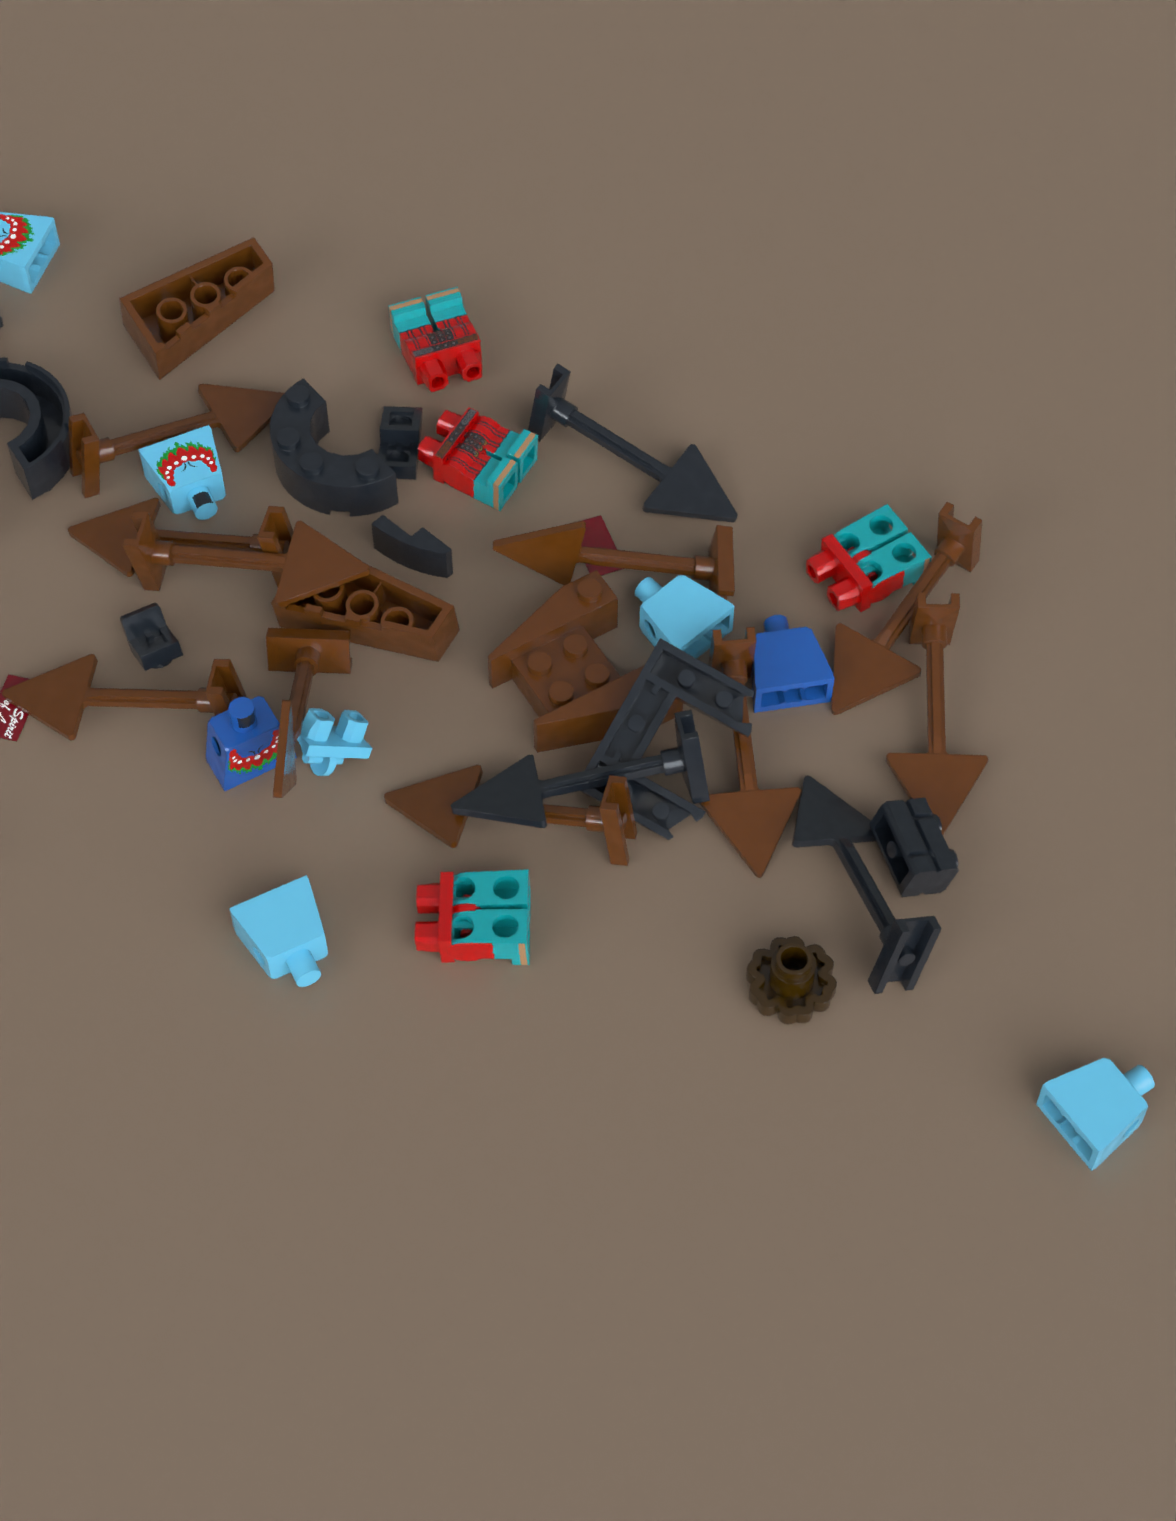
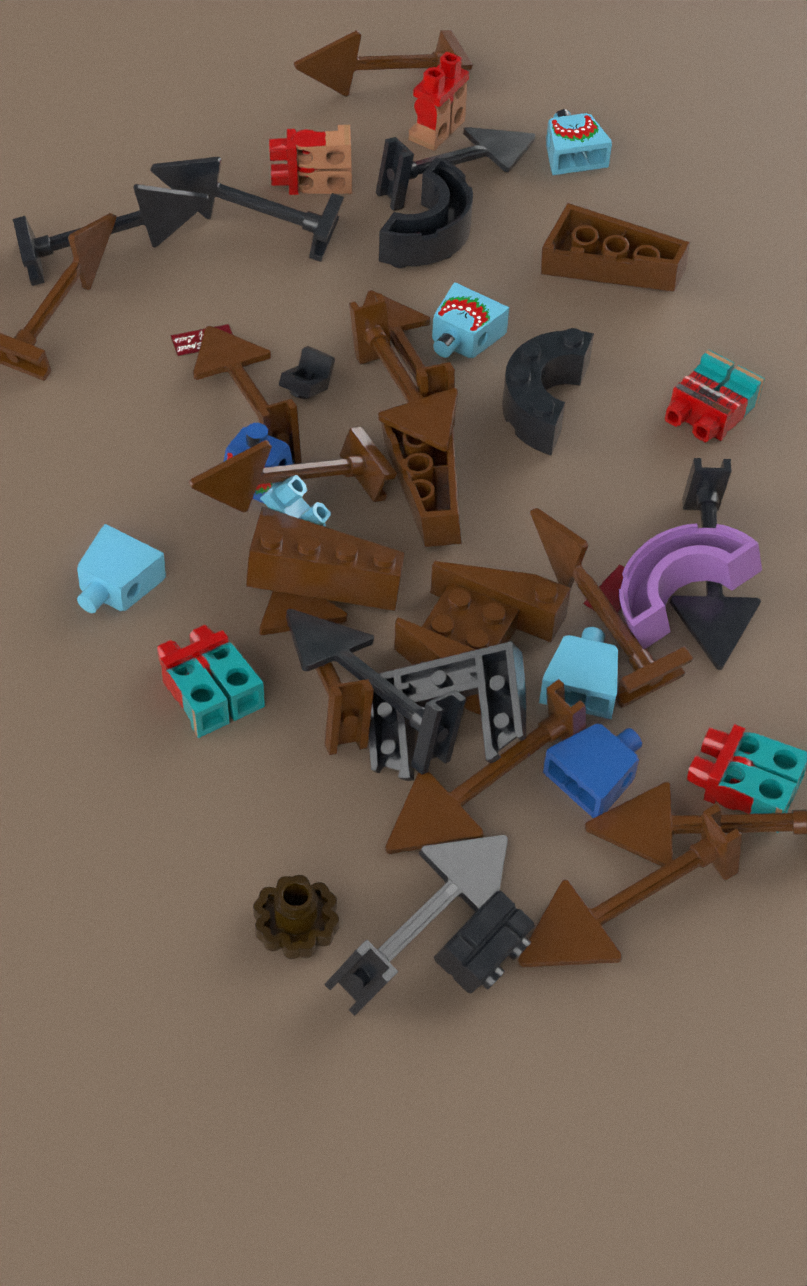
camera: 55 degrees right, 5 degrees down
(234, 410) = (542, 318): reddish brown piece -> none
(400, 439) = (606, 425): black slope -> none
(407, 752) = (322, 563): none -> reddish brown wedge
(417, 552) = (508, 478): black slope -> none
(479, 456) = (628, 473): hips -> none
(623, 463) = (675, 560): none -> medium lavender brick
(1096, 1107) = (322, 1214): medium azure torso -> none

